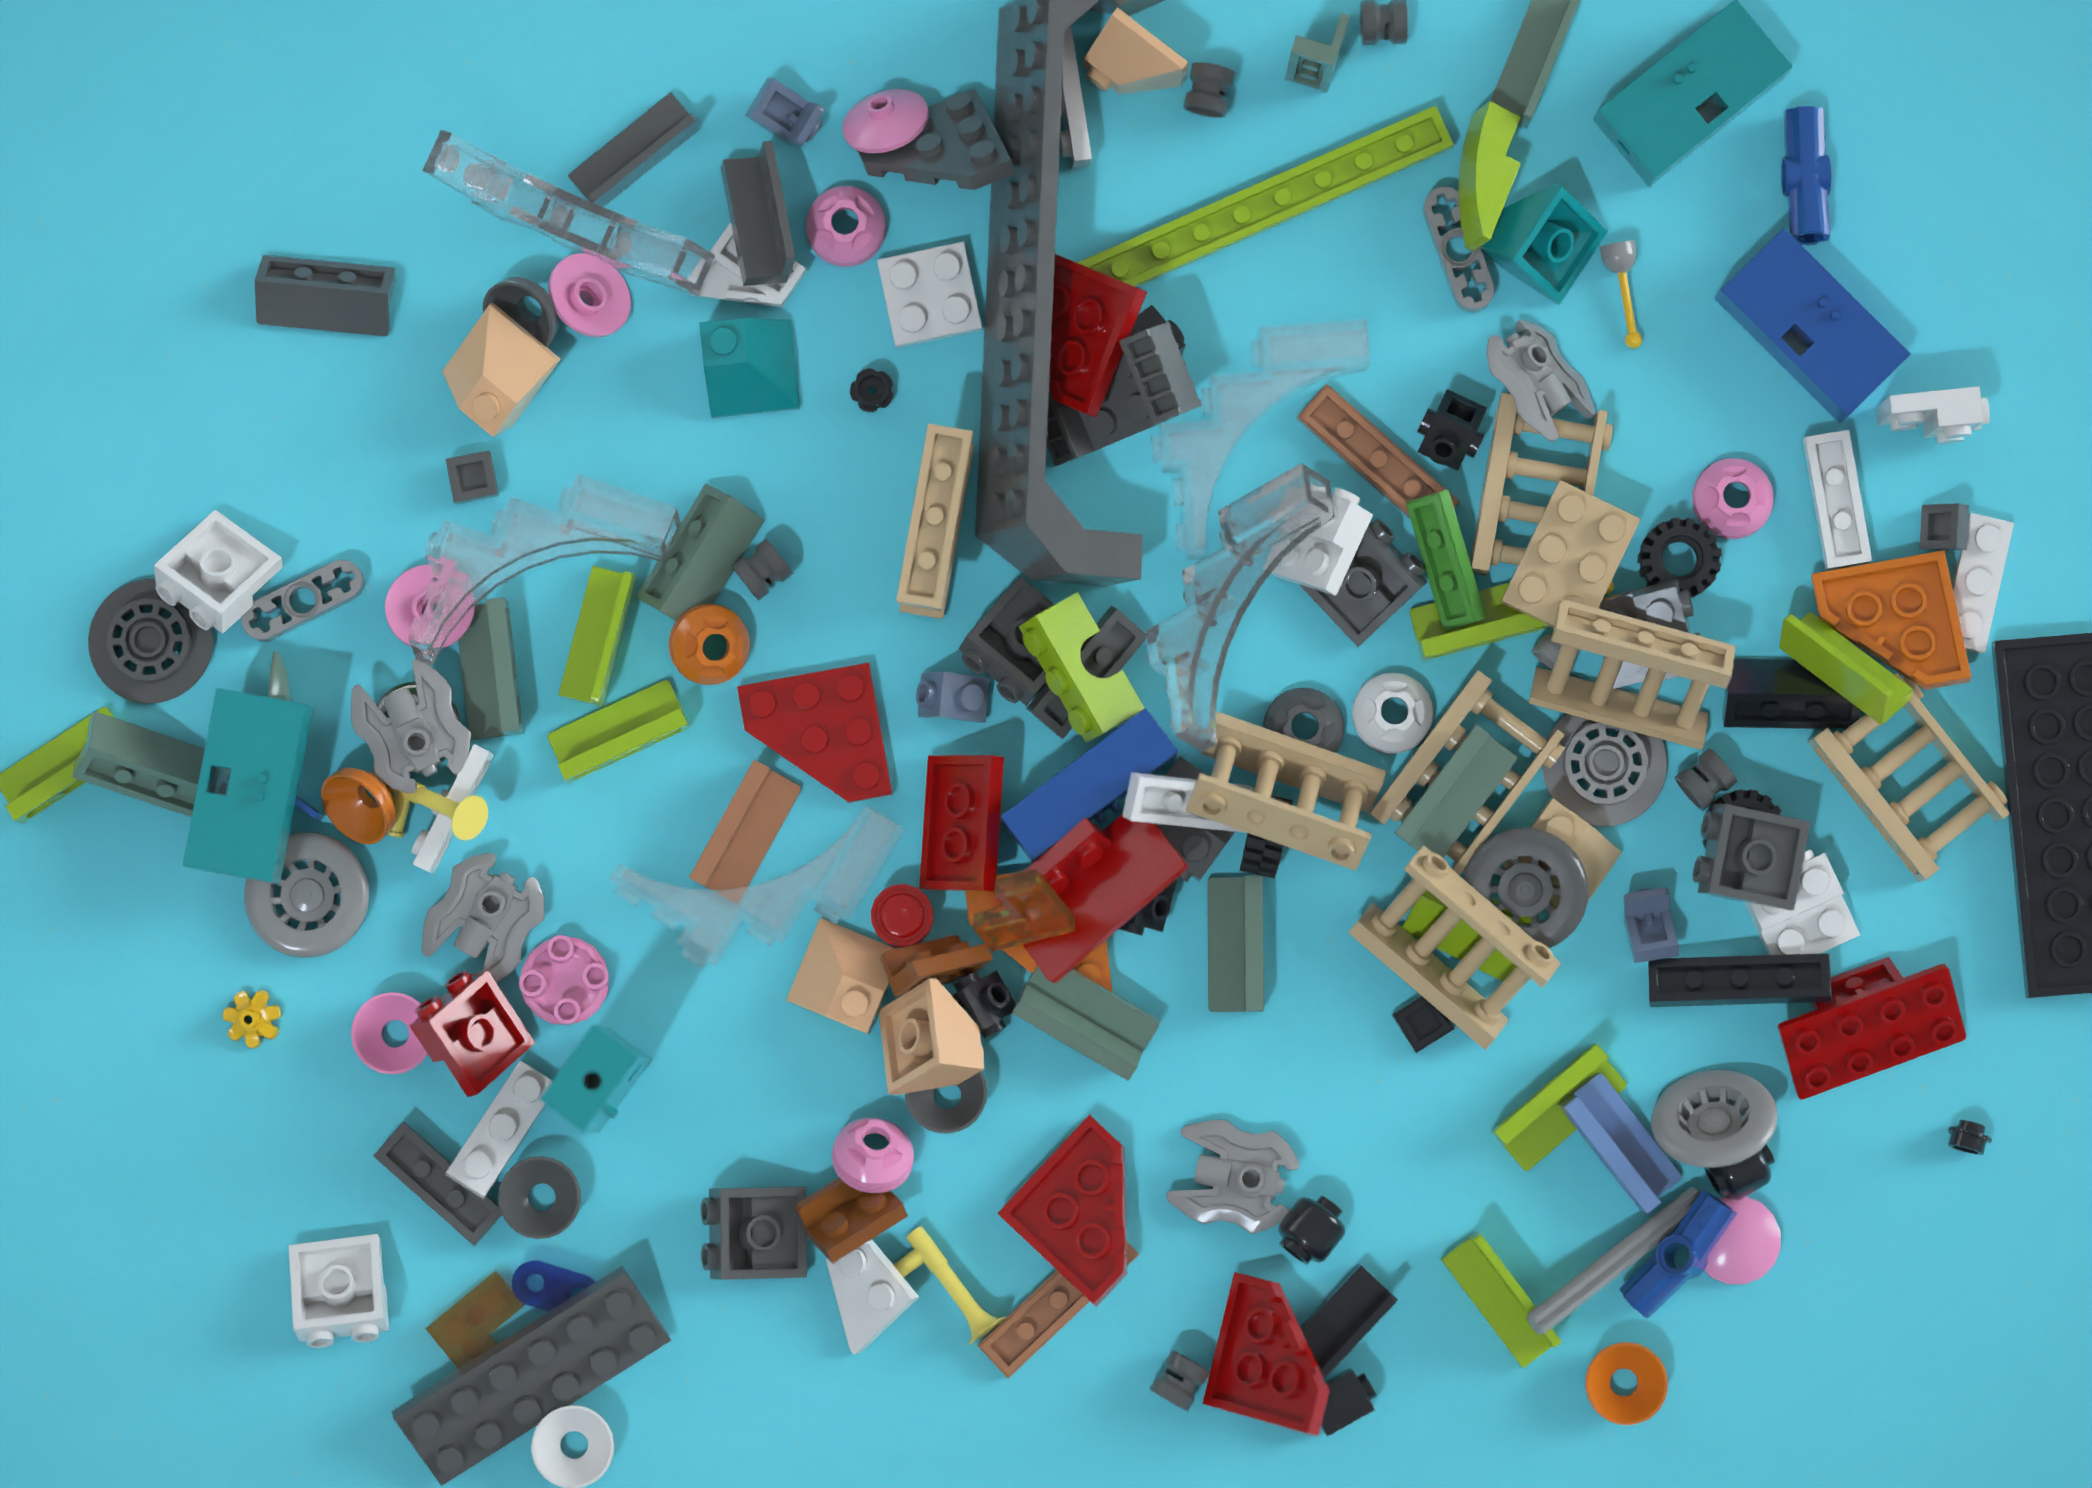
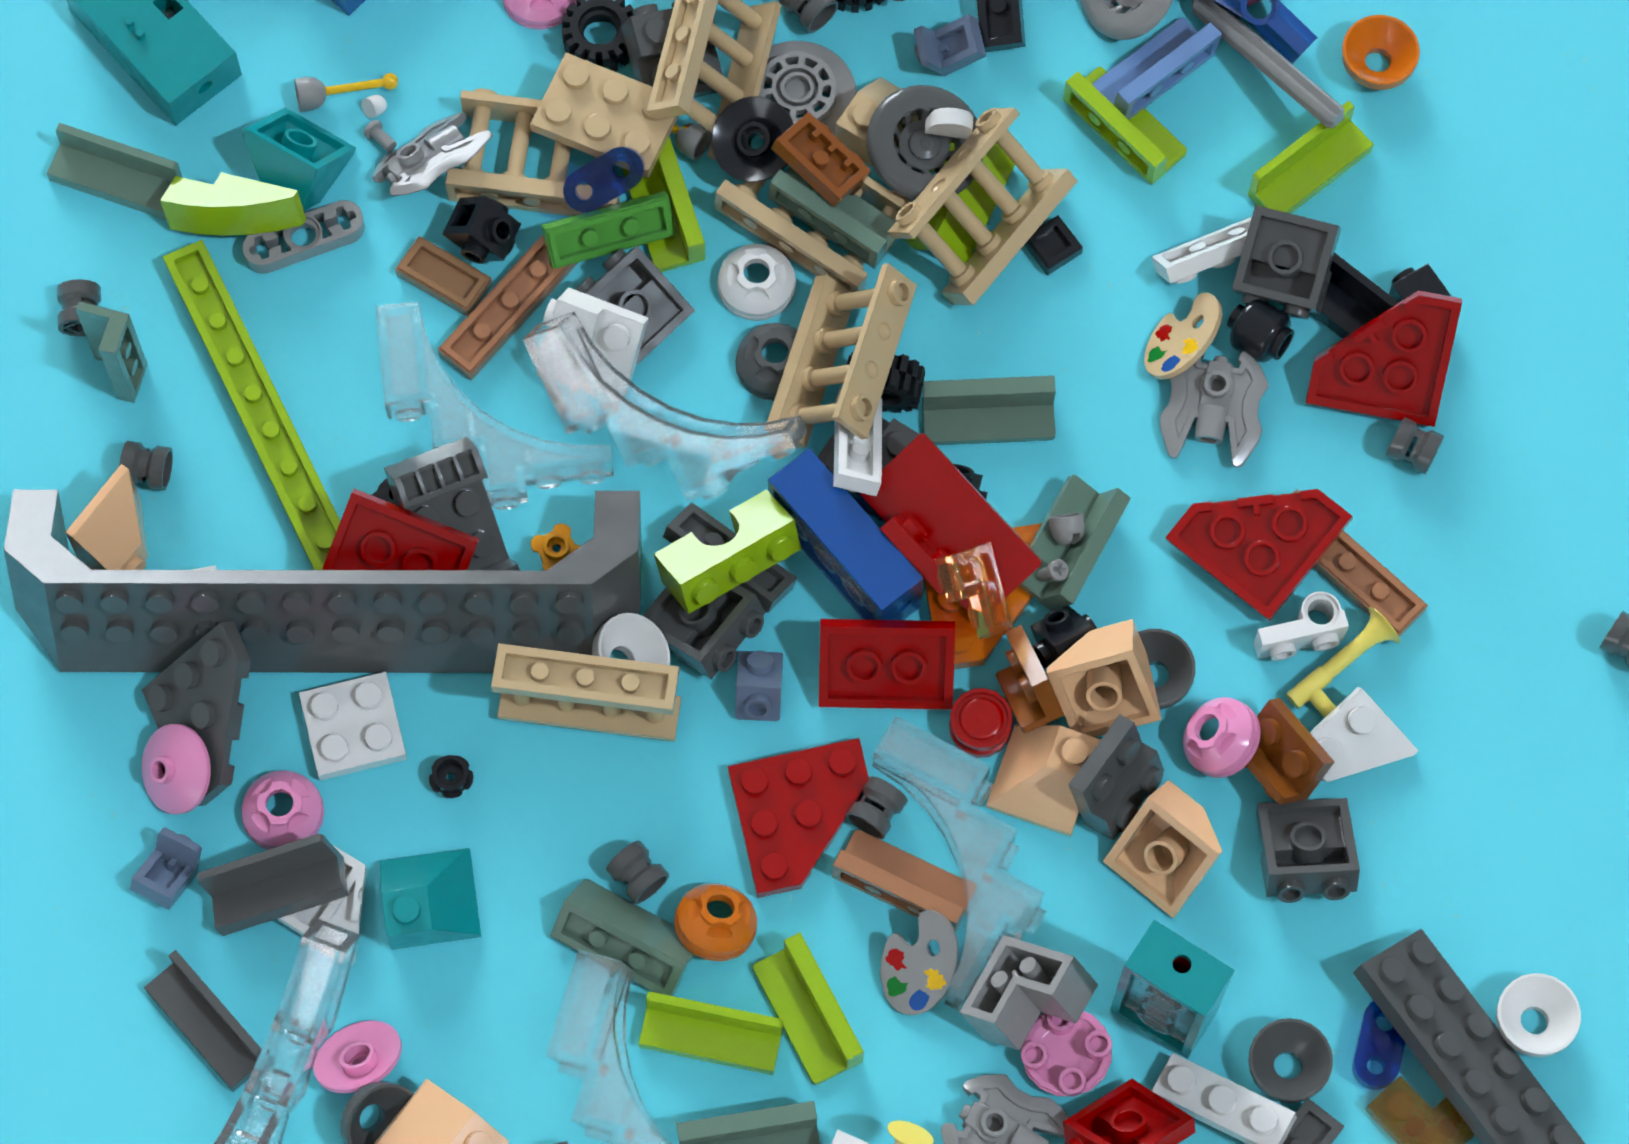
camera: 95 degrees left, 15 degrees down
(620, 934) = (1020, 985): none -> light grey brick
(647, 835) = (912, 974): none -> light grey piece
(762, 1093) = (1166, 848): none -> light nougat slope
(825, 814) = (877, 807): none -> dark grey wheel
(828, 1046) = (1116, 779): none -> dark grey plate
(973, 1226) = (1285, 639): none -> white plate
(981, 585) = (634, 637): none -> white piece
(1046, 997) = (1056, 570): none -> light grey piece
(1098, 1013) = (1067, 528): none -> light grey hinge
(1103, 512) = (544, 544): none -> light orange plate
(1299, 1141) = (1178, 344): none -> tan piece
(1377, 1259) = (1286, 261): none -> dark grey plate
(1409, 1195) = (1212, 250): none -> white plate
(1410, 392) = (443, 276): none -> medium nougat tile
(1492, 551) = (603, 180): none -> clear blue plate
(1499, 778) = (821, 159): none -> dark orange bracket
(1532, 692) = (738, 127): none -> black dish
(1537, 914) = (950, 123): none -> white tile
(1571, 327) = (375, 131): none -> light grey piece
(1606, 323) = (374, 106): none -> white piece

